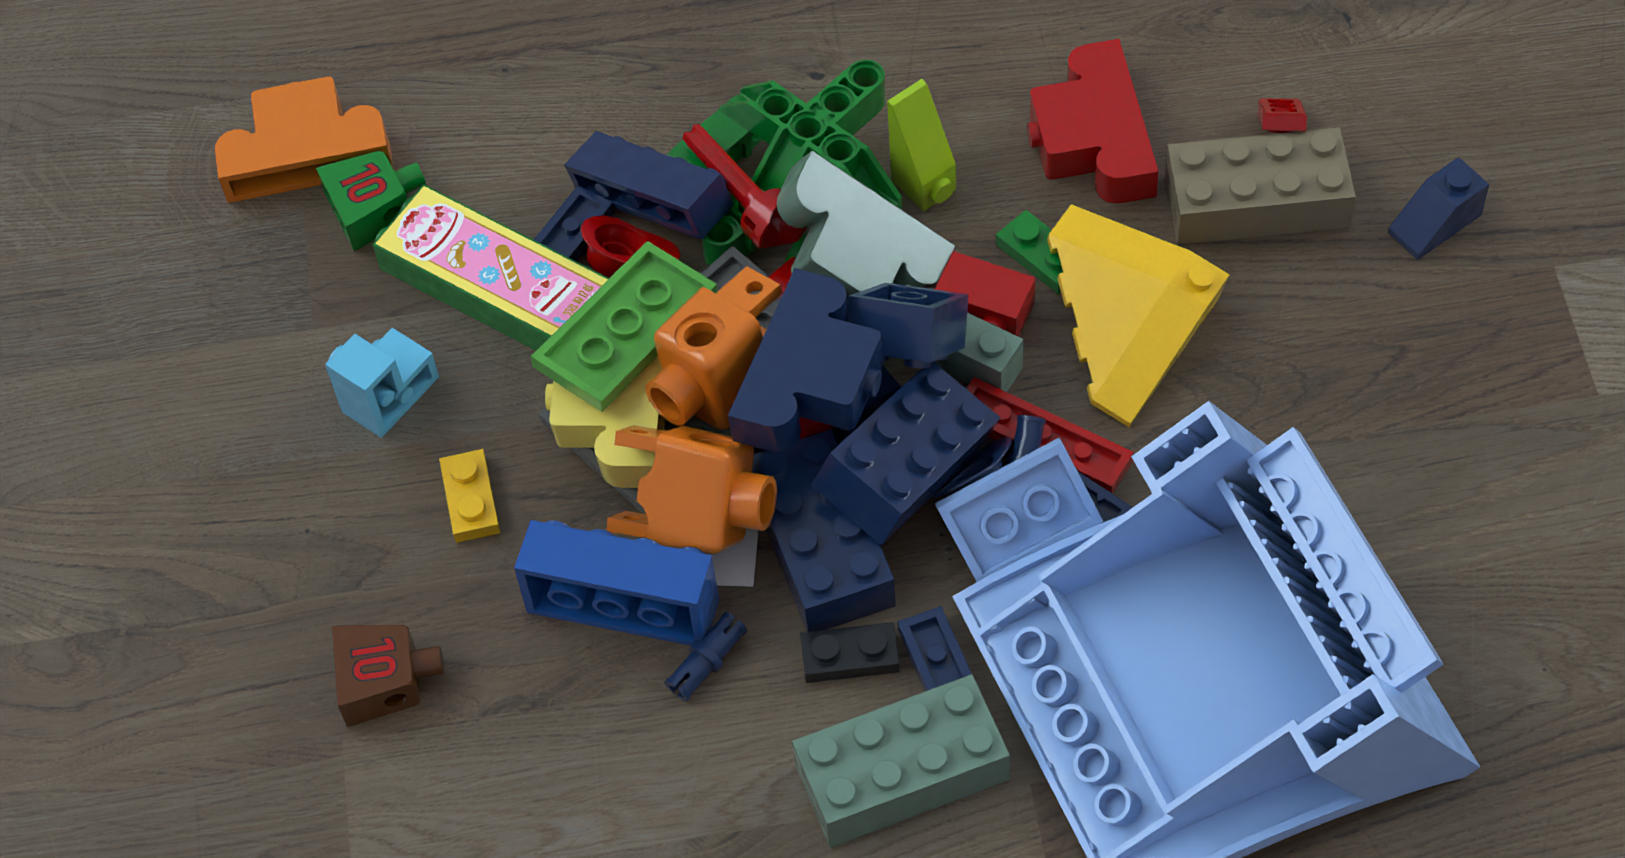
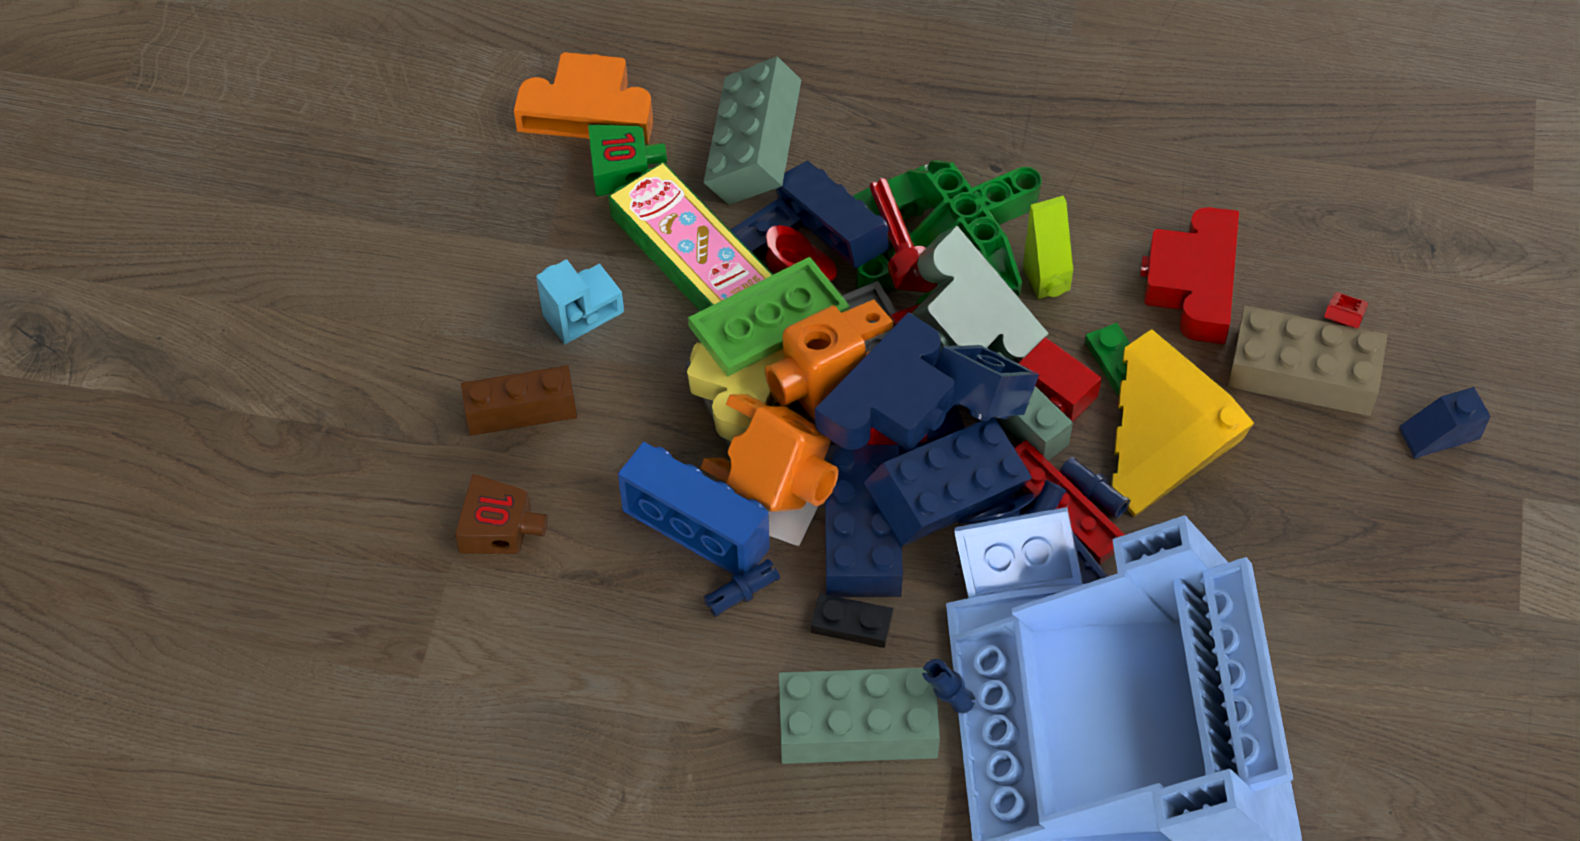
camera: 15 degrees right, 0 degrees up
(354, 520) = (518, 400): none -> reddish brown brick
(469, 495) = (612, 409): yellow plate -> none
(518, 116) = (753, 131): none -> sand green brick
(933, 648) = (915, 636): dark blue plate -> none
(998, 690) = (948, 686): none -> dark blue pin
(1074, 406) = (1095, 487): none -> dark blue pin

